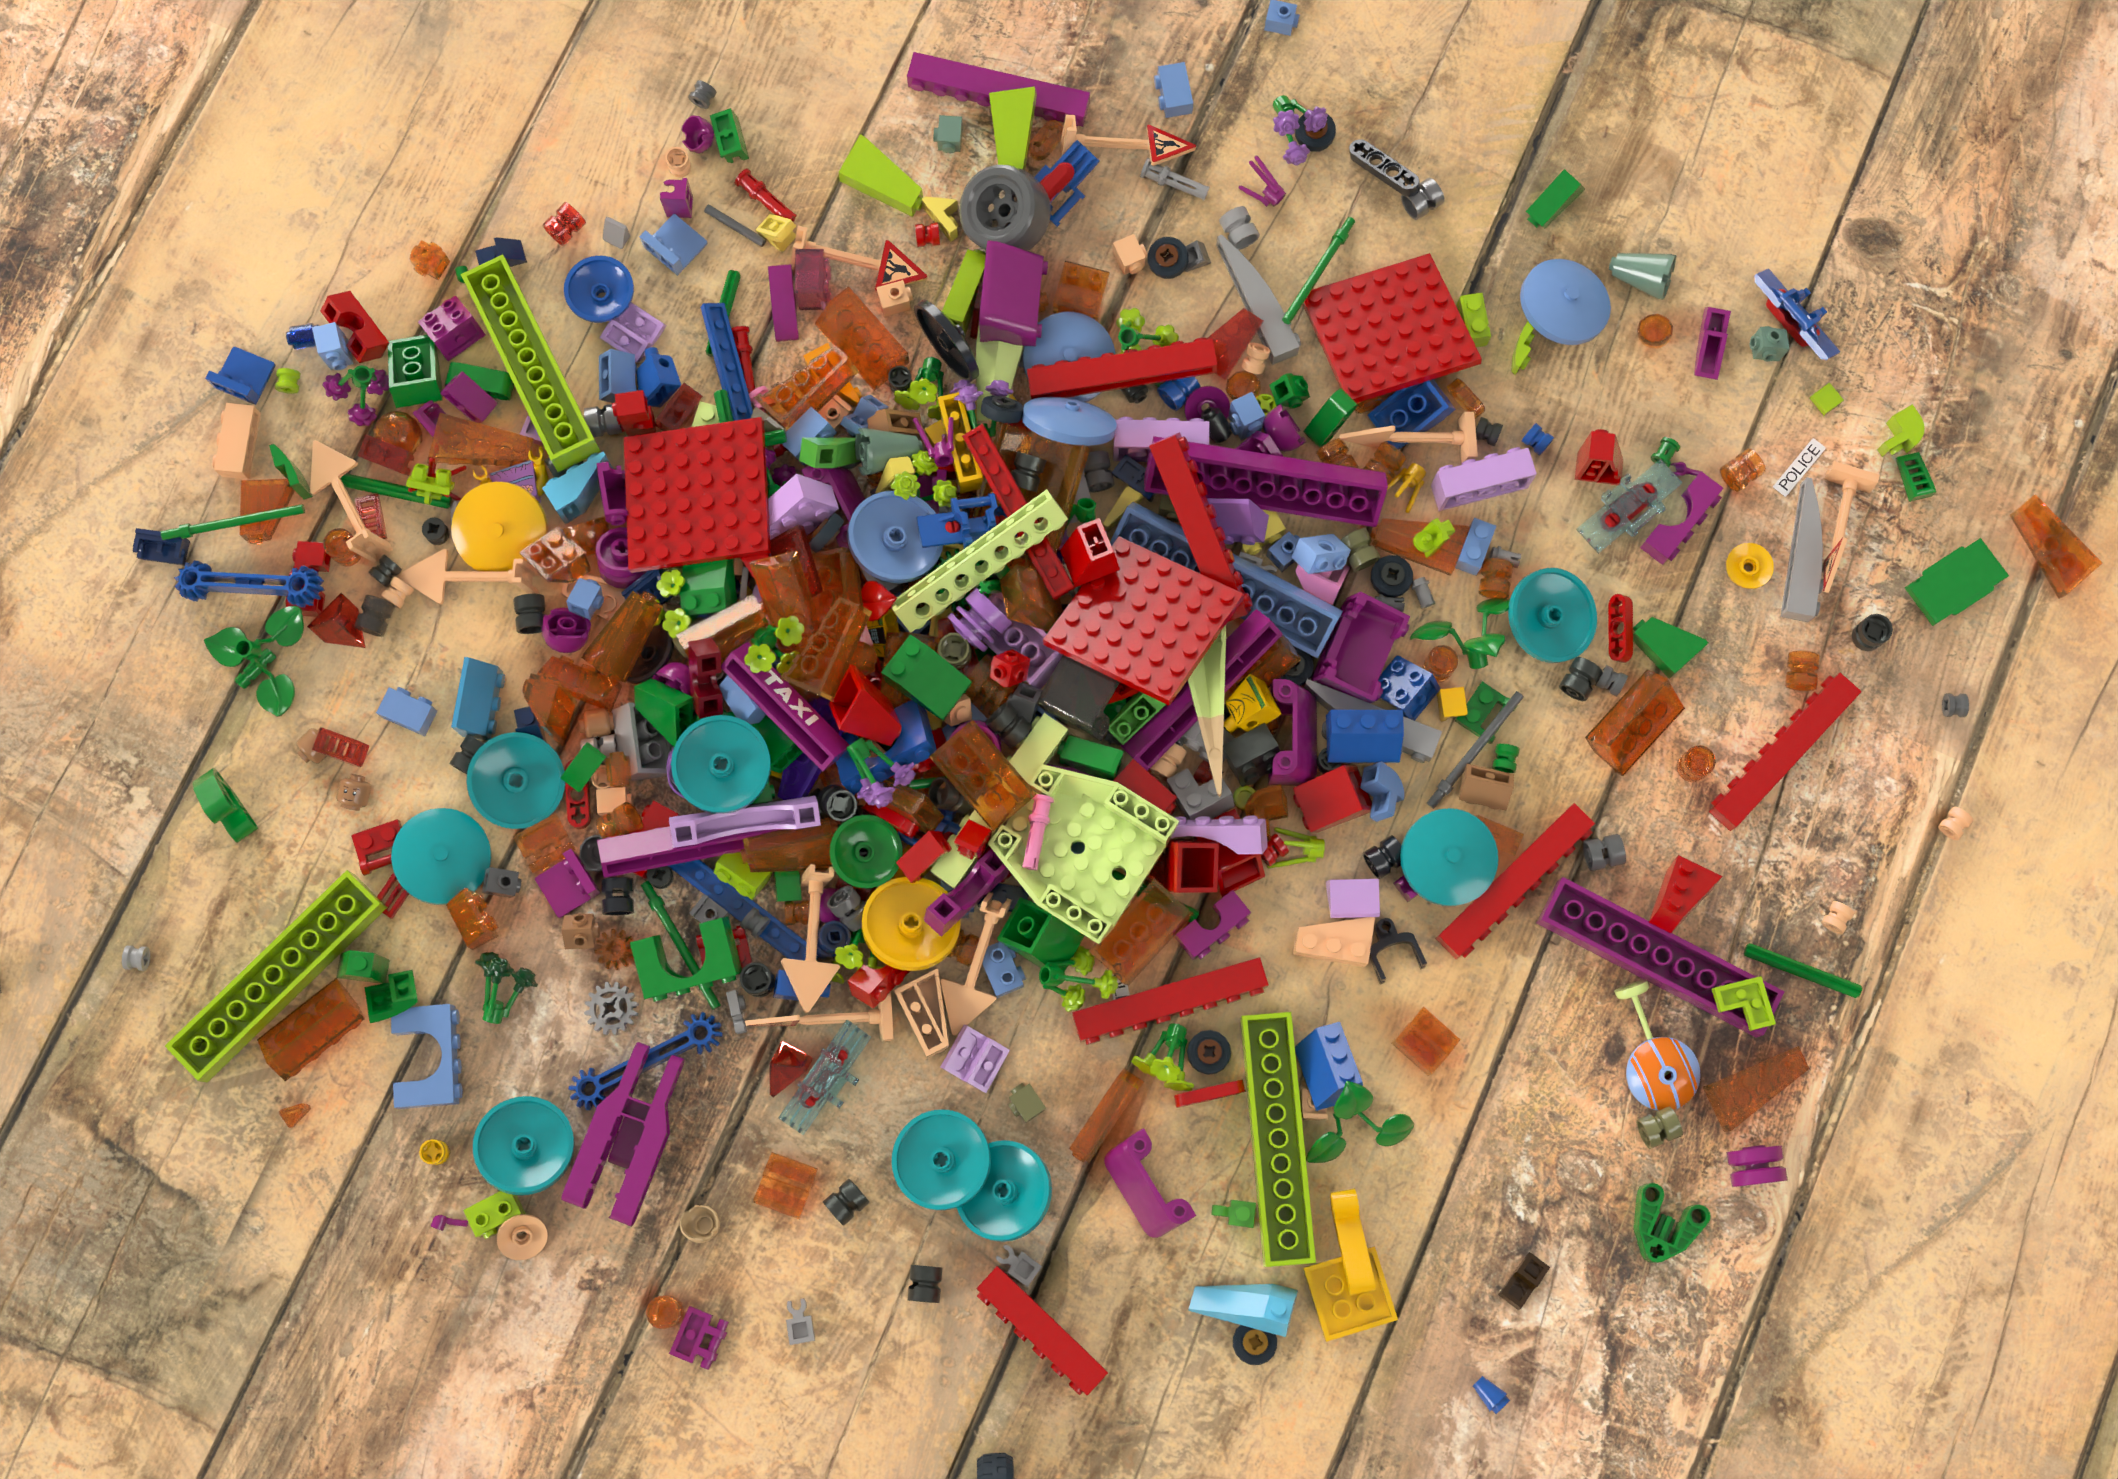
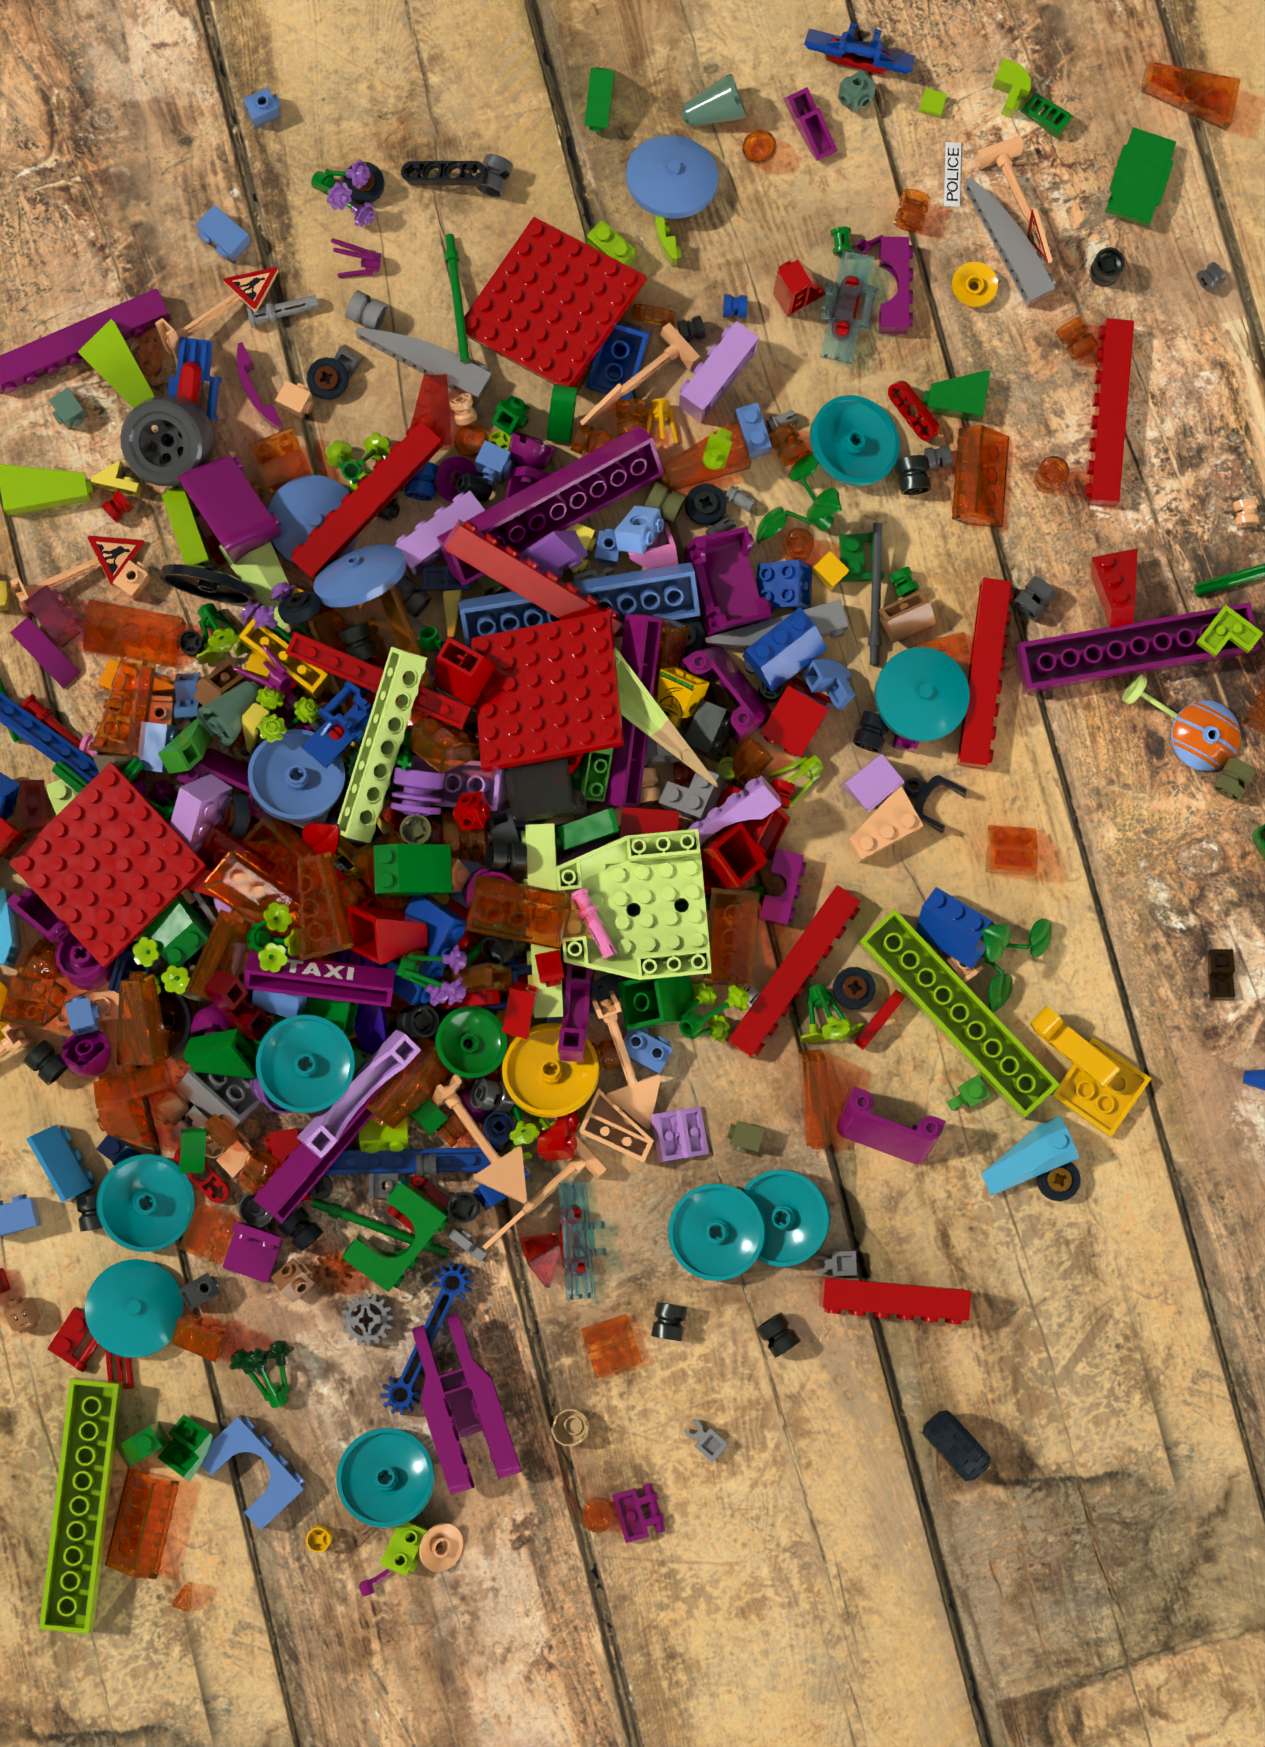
camera: 45 degrees left, 5 degrees up
(1110, 201) = (268, 412): none -> magenta slope

